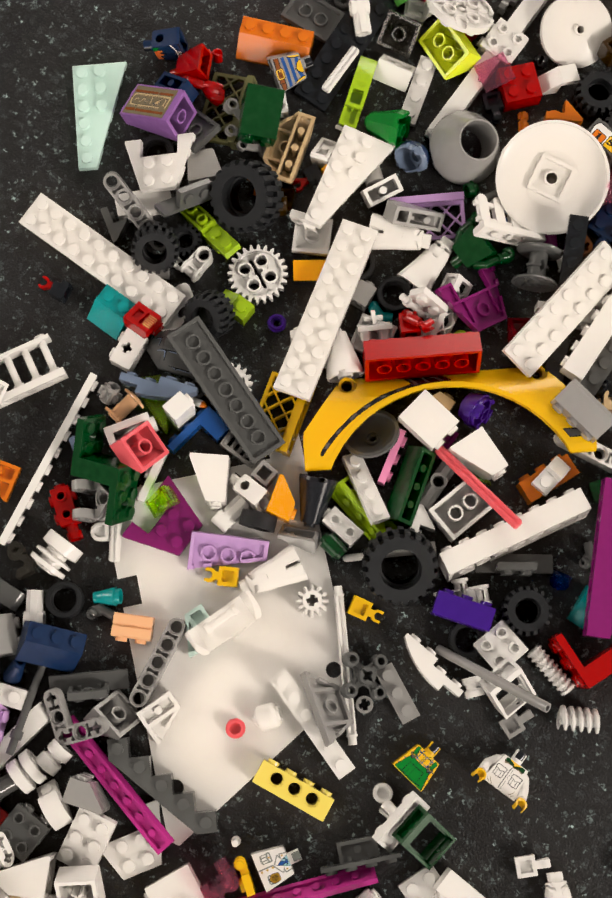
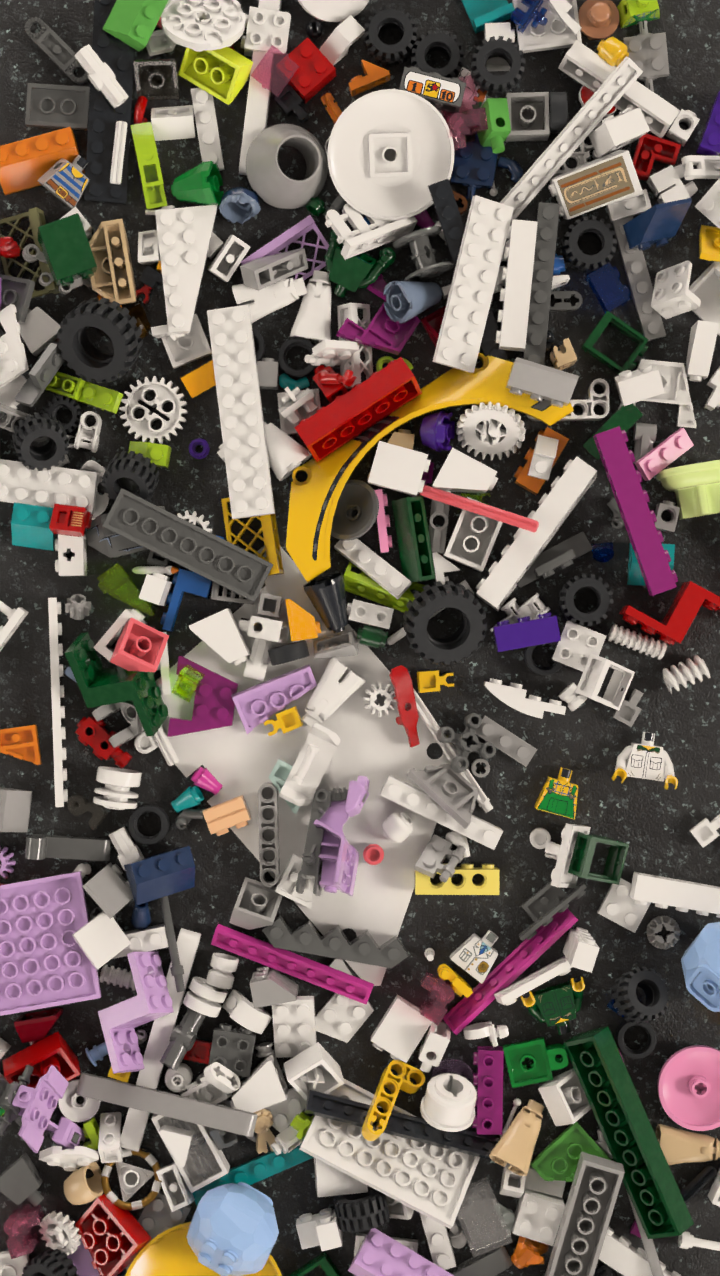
camera: 25 degrees left, 10 degrees up
(50, 846) = (264, 1049): none -> light grey bush
(67, 726) = (218, 937): light grey beam -> none
(90, 685) = (216, 889): dark grey bracket -> none
(124, 407) = (99, 613): light nougat hose -> none
(132, 589) = (205, 780): none -> dark pink cone
(160, 391) = (130, 576): sand blue slope -> none
(197, 704) = (327, 853): none -> lavender piece
(285, 757) = (435, 854): none -> light grey plate
(314, 758) = (458, 839): none -> white arm
(334, 607) = (405, 695): none -> red piece
(376, 47) = (139, 110): none -> red arm
(493, 678) = (586, 683): light grey piece -> none
(508, 295) = (410, 298): none -> sand blue cone
(510, 440) = (489, 440): none -> white gear

